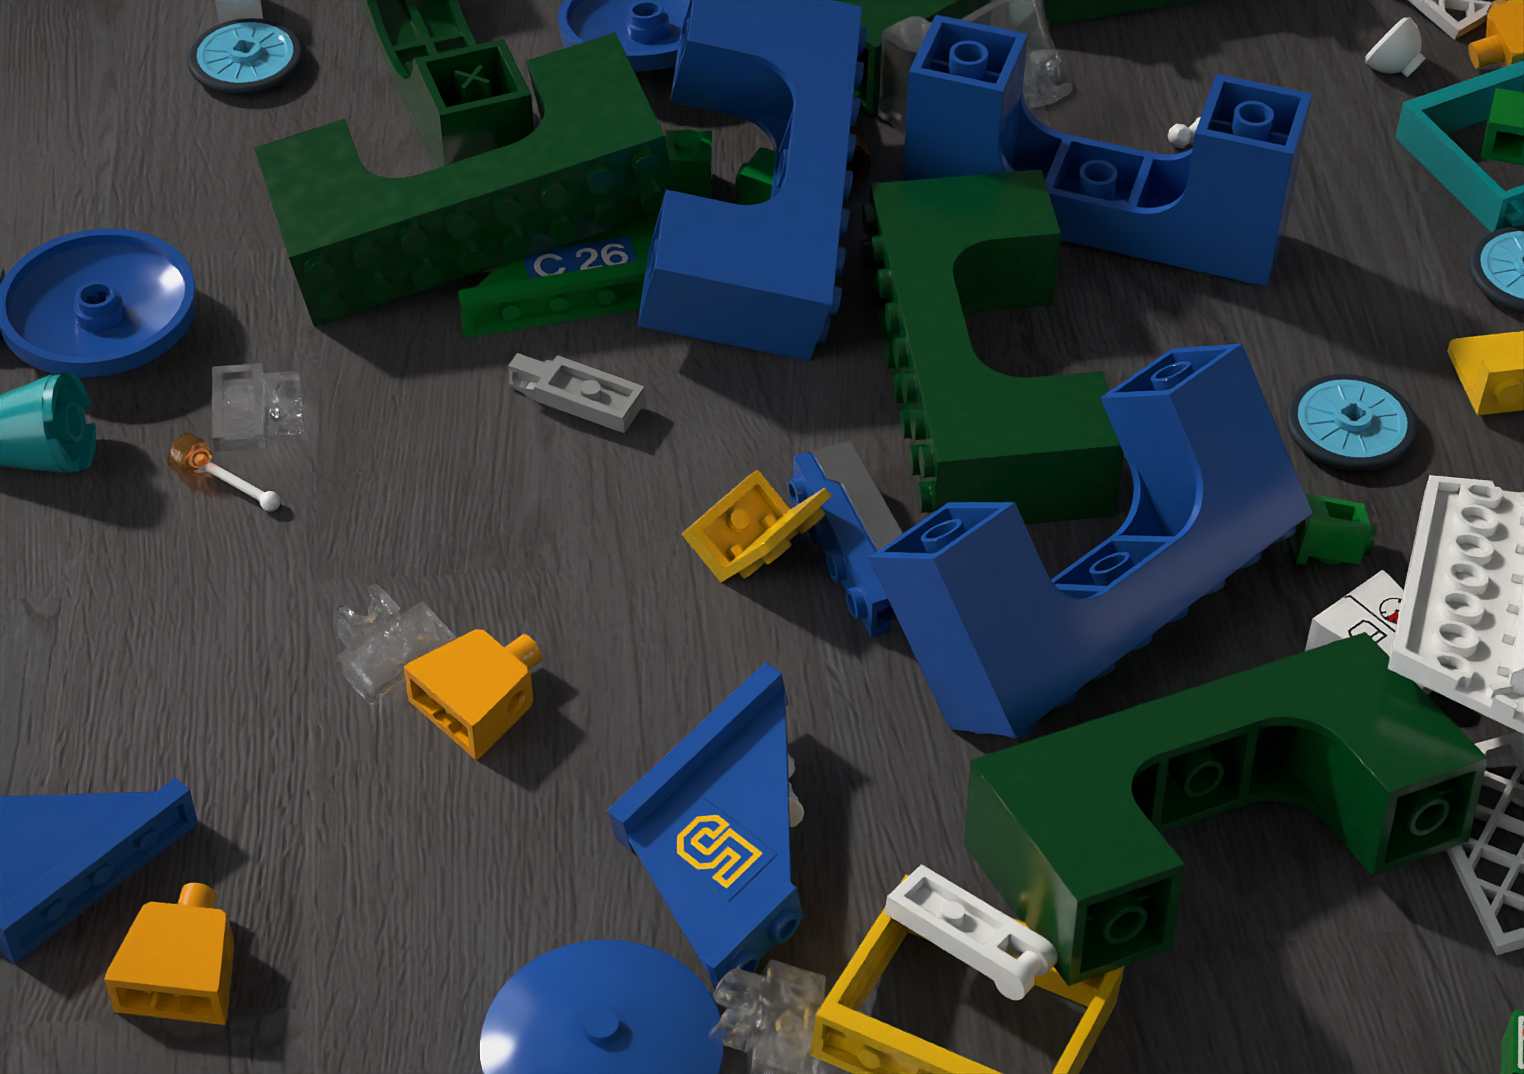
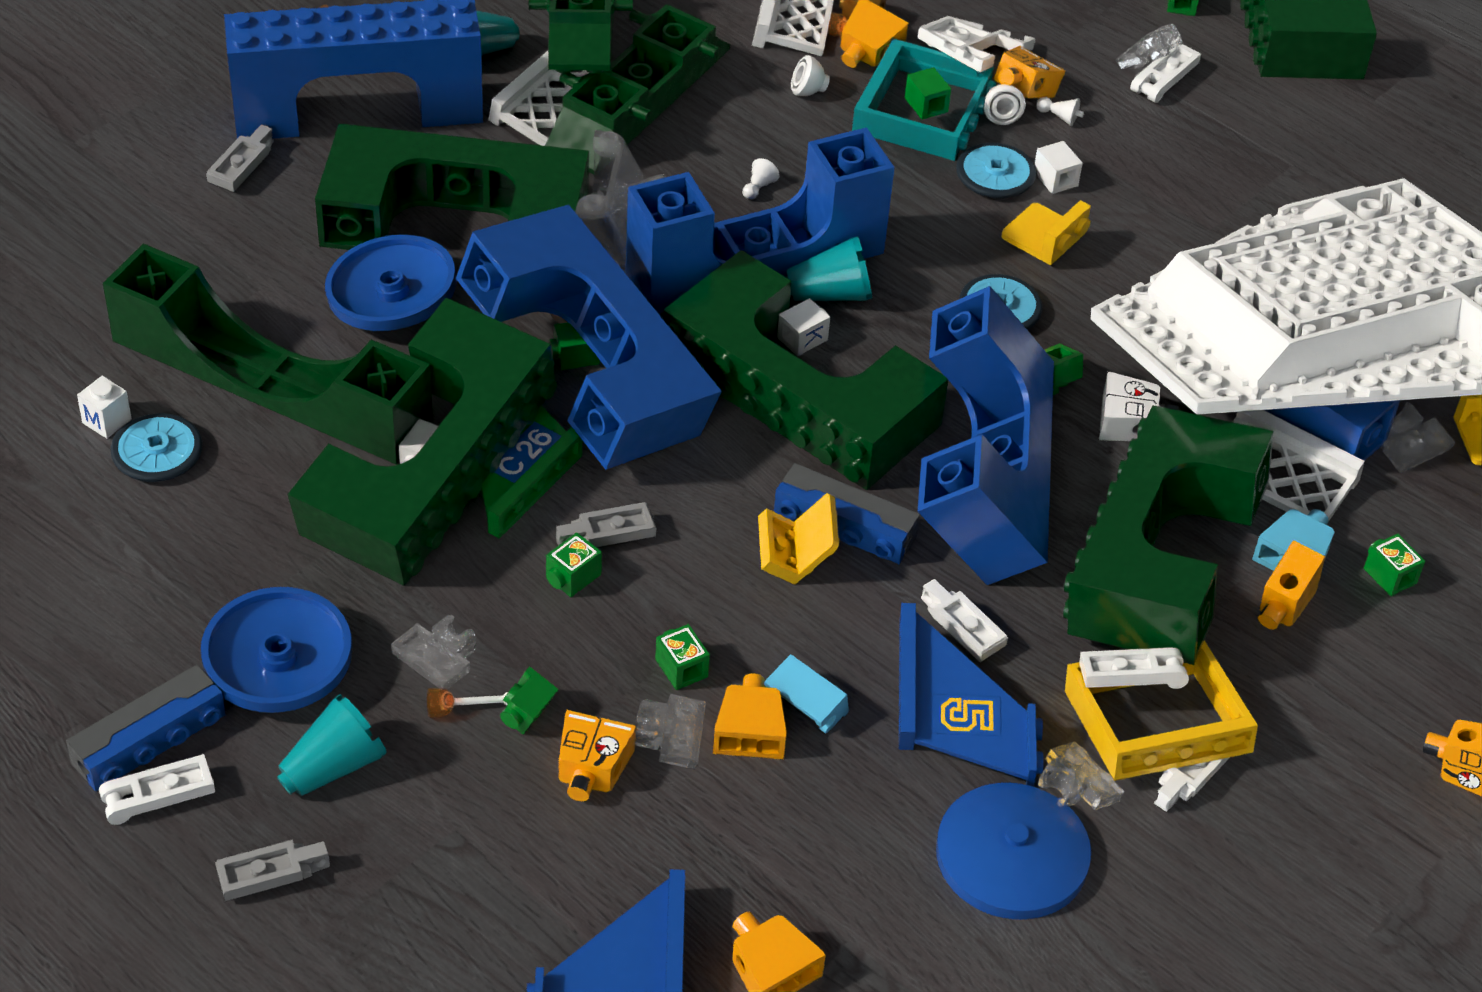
camera: 45 degrees left, 0 degrees up
(265, 510) = (527, 700): none -> green brick
(268, 609) = (593, 753): none -> light orange torso
(485, 572) = (682, 656): none -> green brick
(489, 405) = (573, 565): none -> green brick
(570, 703) = (809, 692): none -> medium azure hinge
(857, 748) = (963, 621): none -> white hinge
(1061, 309) = (803, 327): none -> white brick
(1159, 270) = (832, 275): none -> teal cone
(1331, 985) = (1286, 596): none -> light orange torso
(1419, 944) = (1294, 525): none -> medium azure torso

